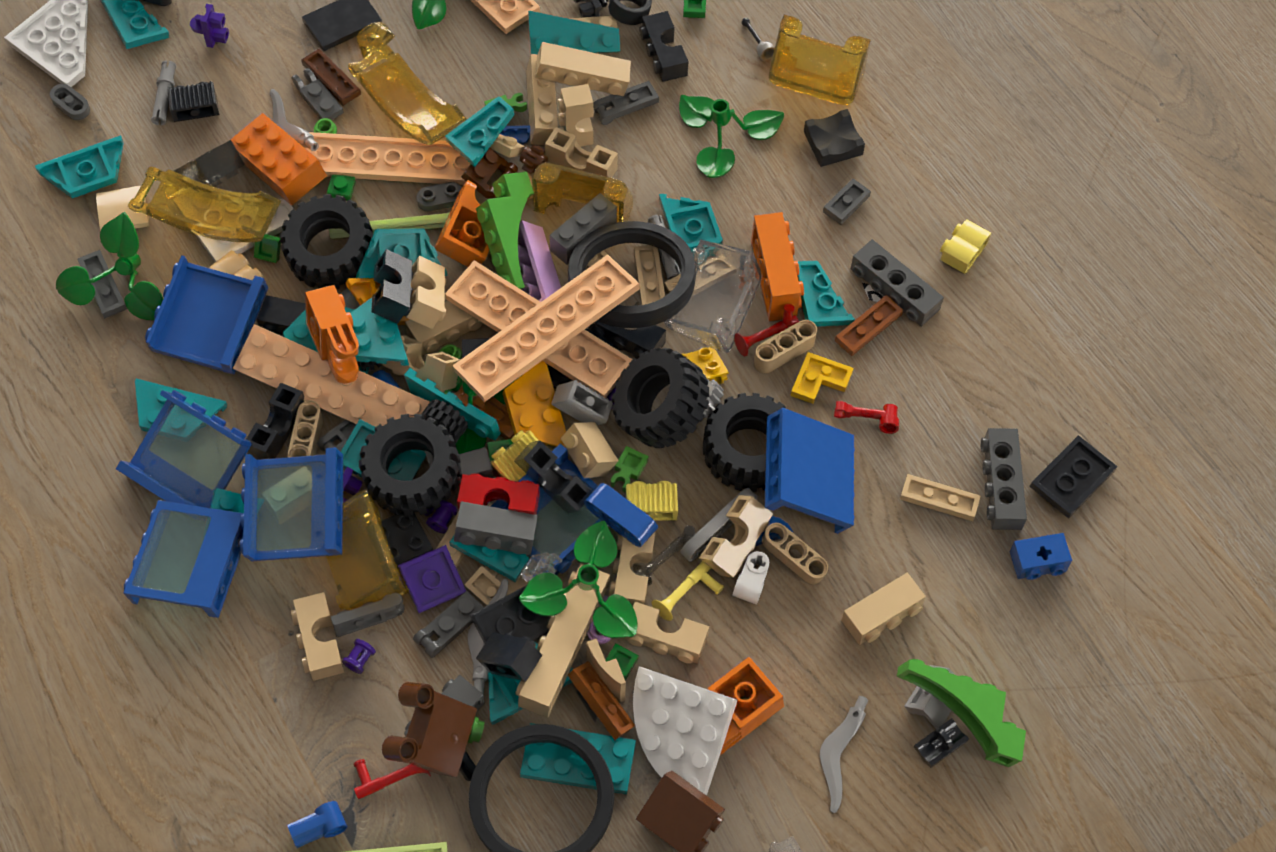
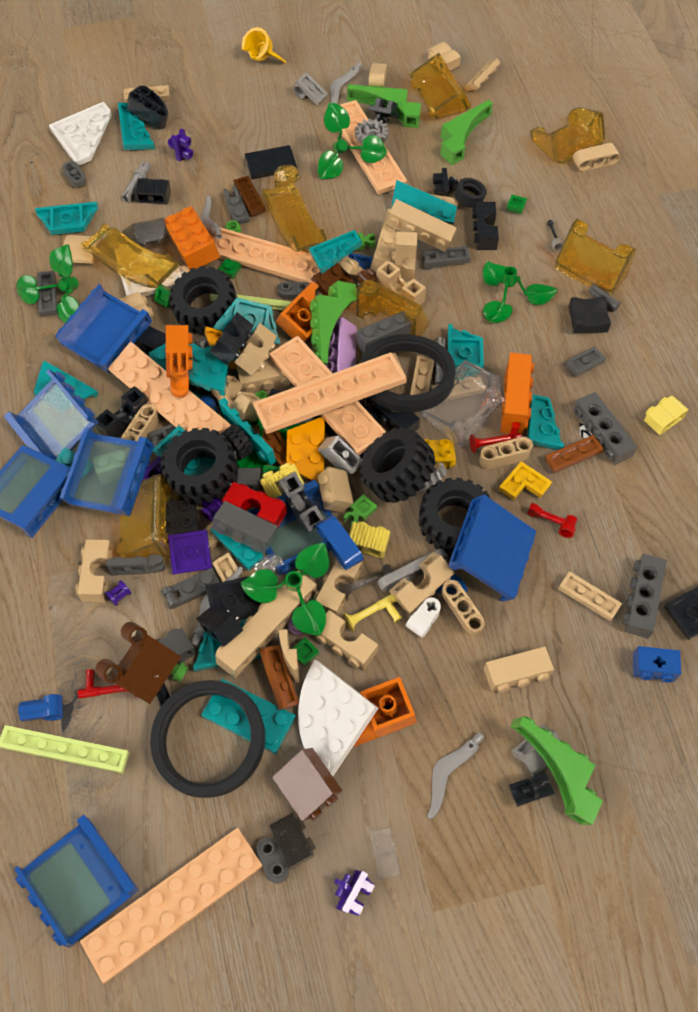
camera: 20 degrees right, 0 degrees up
(836, 105) = (611, 302): none -> dark grey axle

